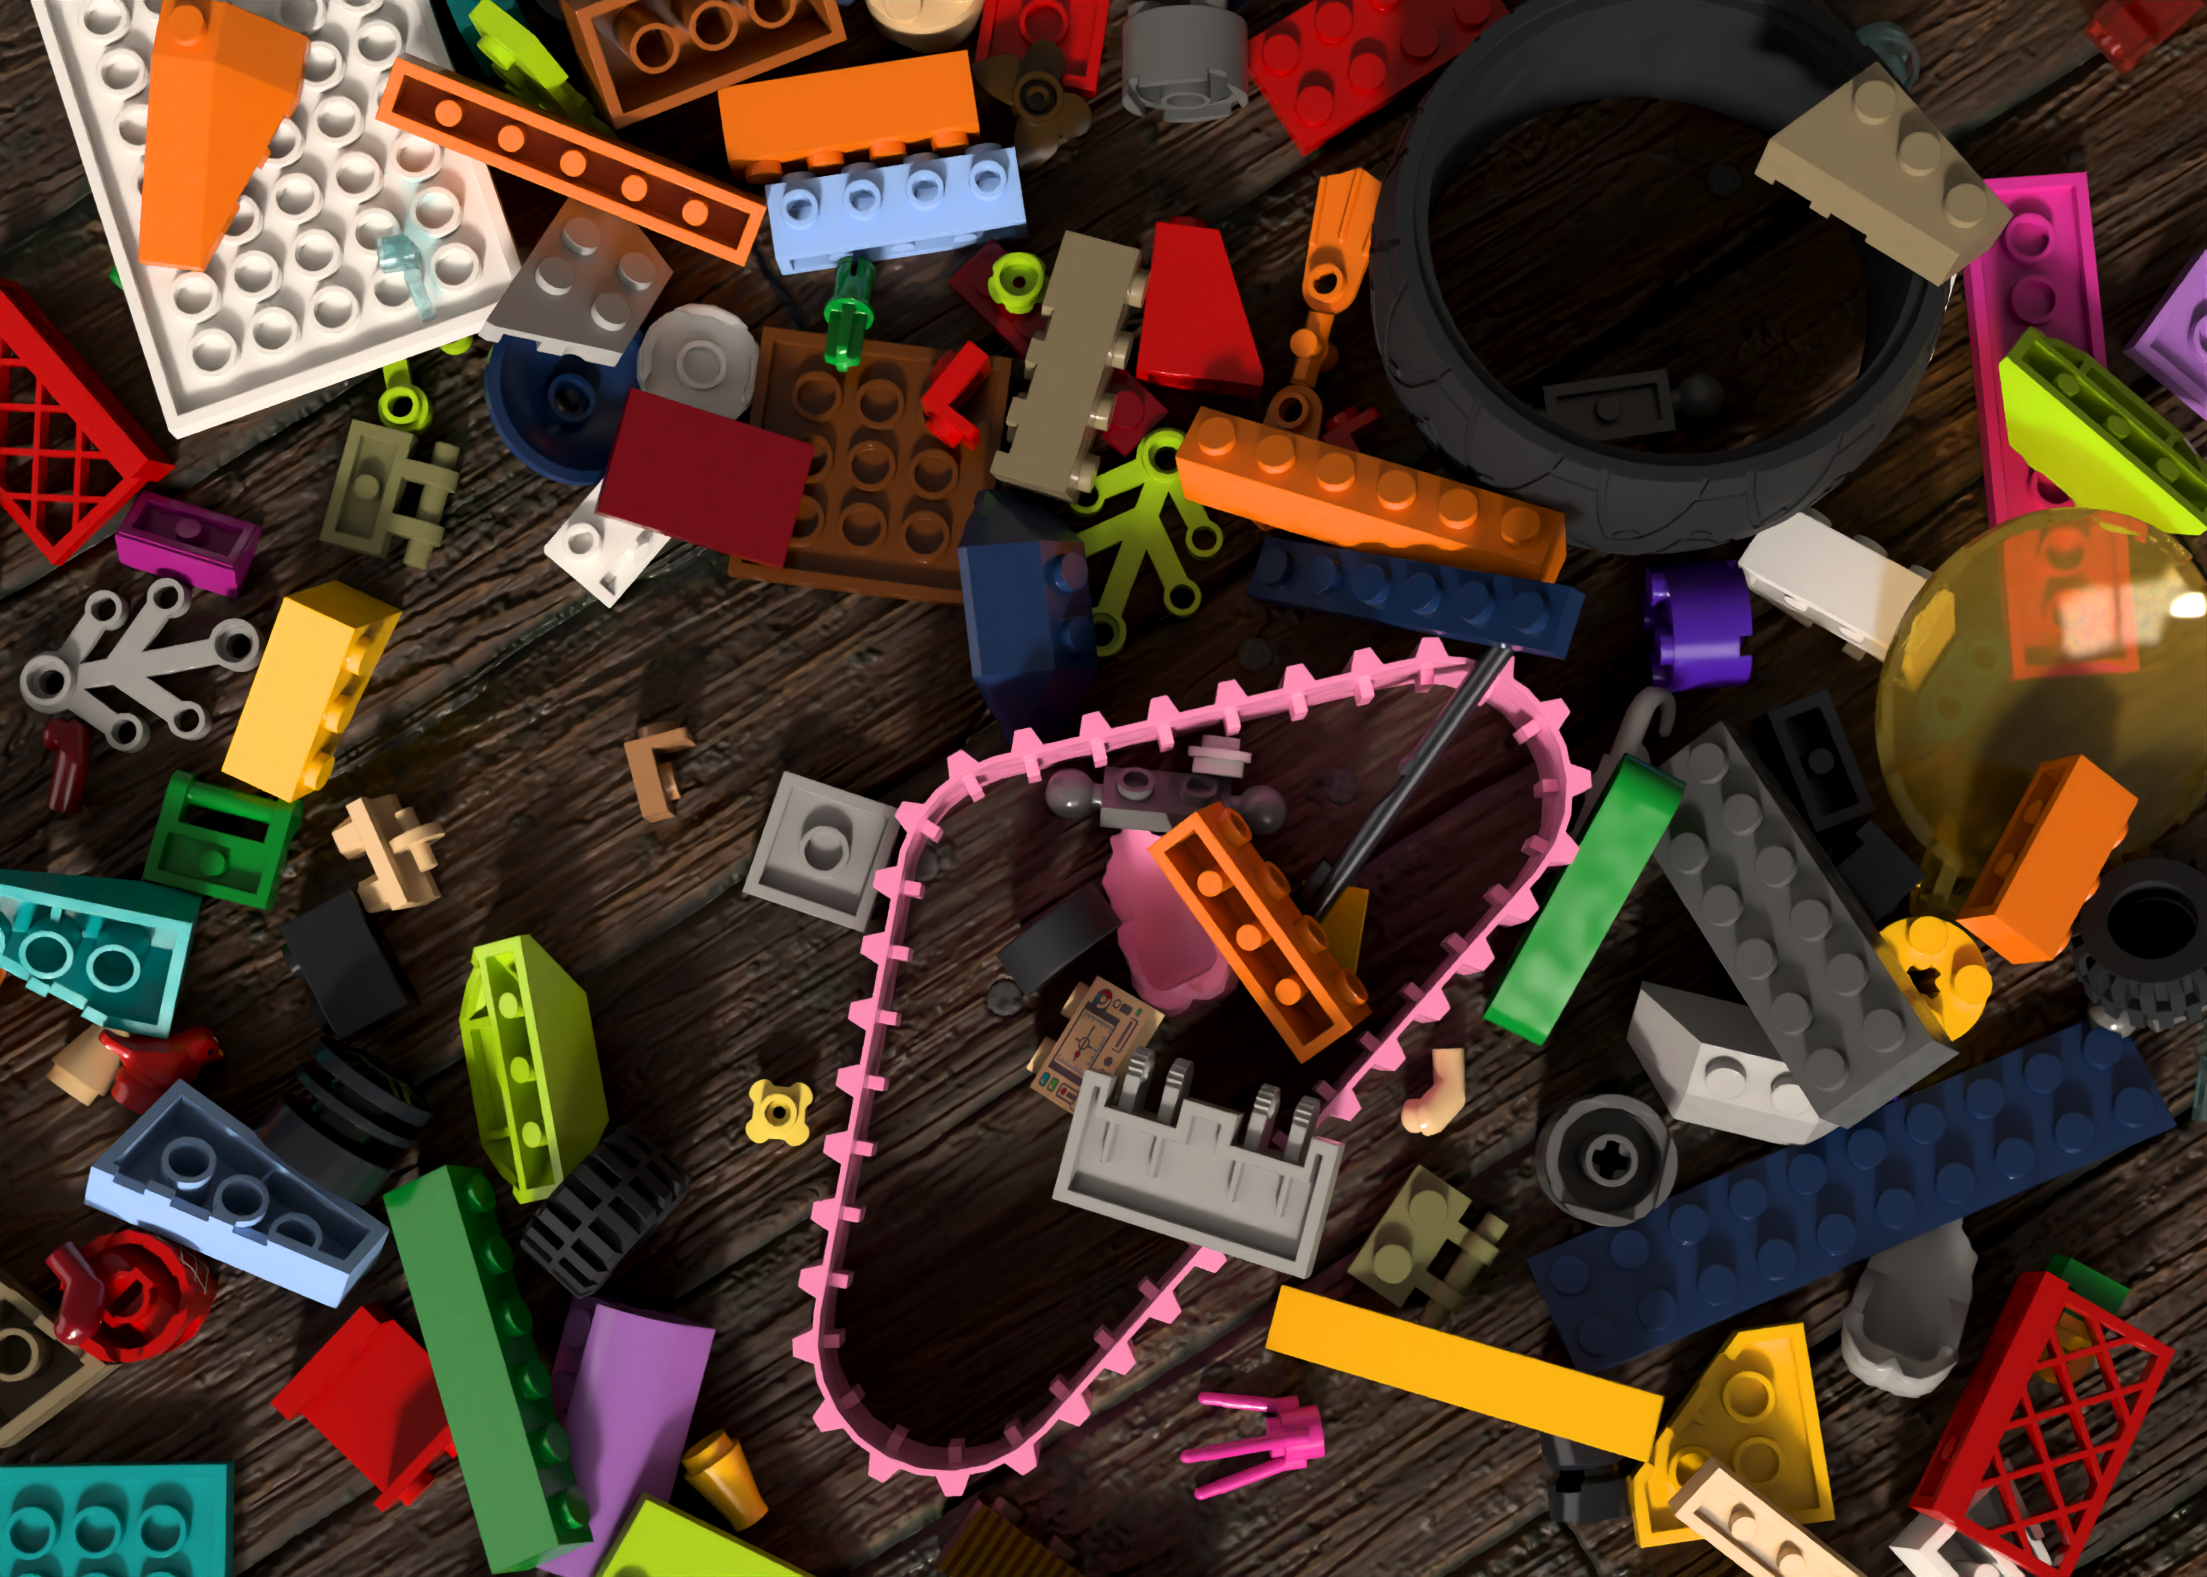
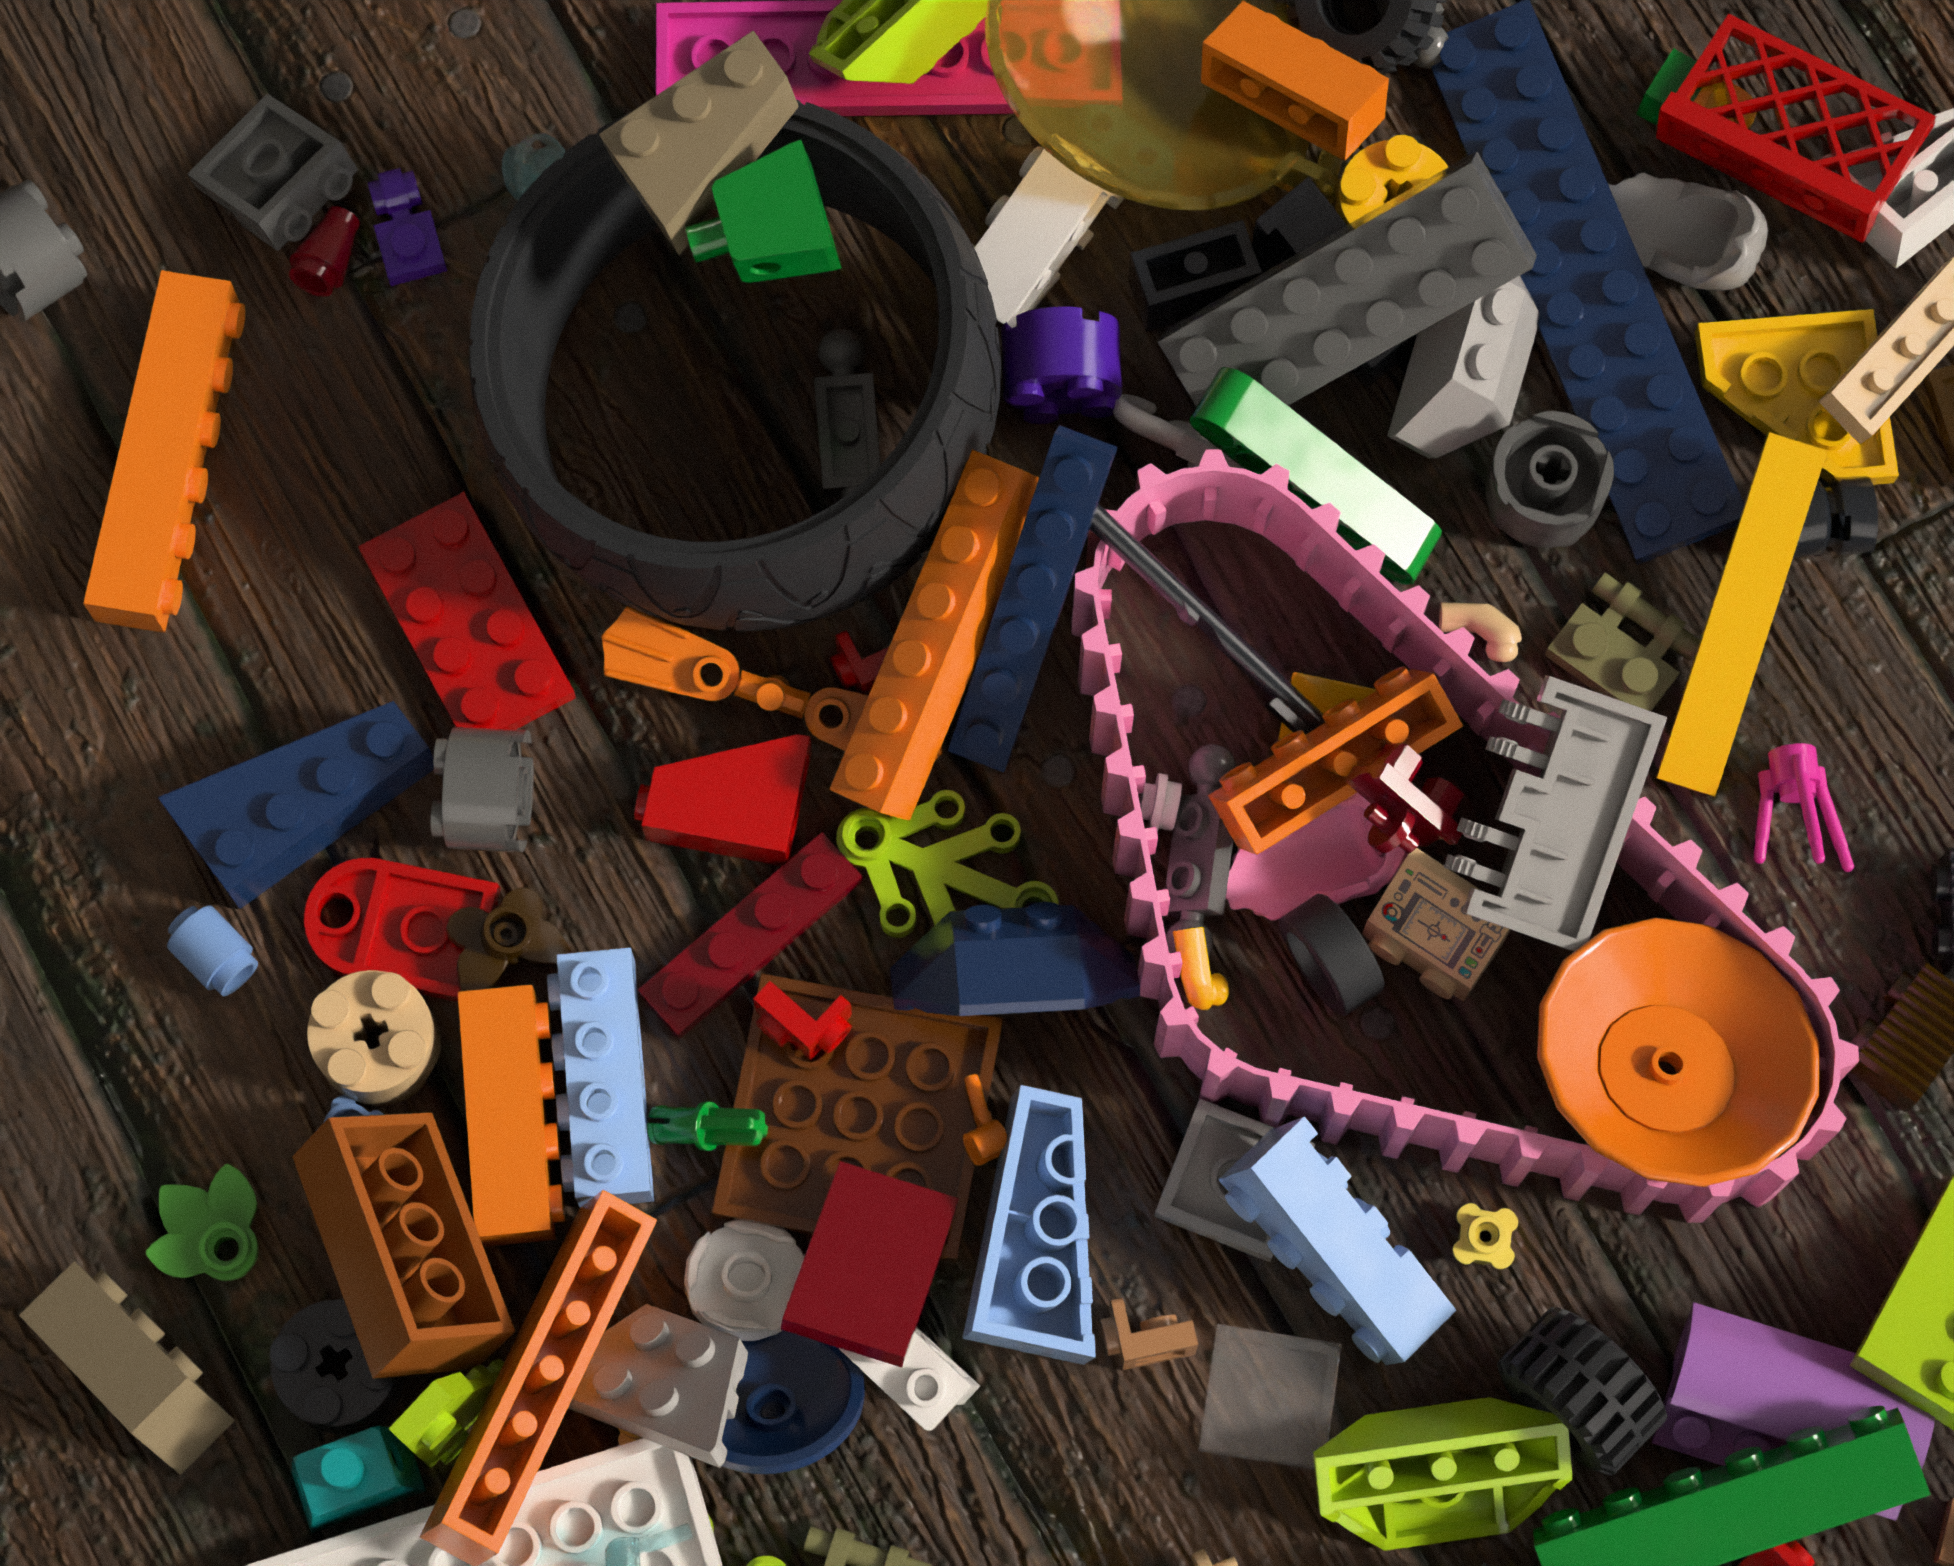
camera: 90 degrees left, 10 degrees down
(604, 896) = (1269, 1396): none -> clear plate
(724, 1479) = (1833, 1304): yellow cone -> none
(733, 648) = (1034, 1248): none -> light blue wedge
(751, 953) = (1336, 1243): none -> light blue wedge
(846, 594) = (990, 1137): none -> orange hand
(985, 1356) = (1709, 1011): none -> orange dish
(1015, 266) = (685, 943): lime plate -> none
(1039, 798) = (1199, 984): none -> yellow arm
(1073, 369) = (784, 907): dark tan wedge -> none
(1226, 983) = (1399, 809): none -> dark red hips
(1796, 259) = (769, 220): none -> green torso

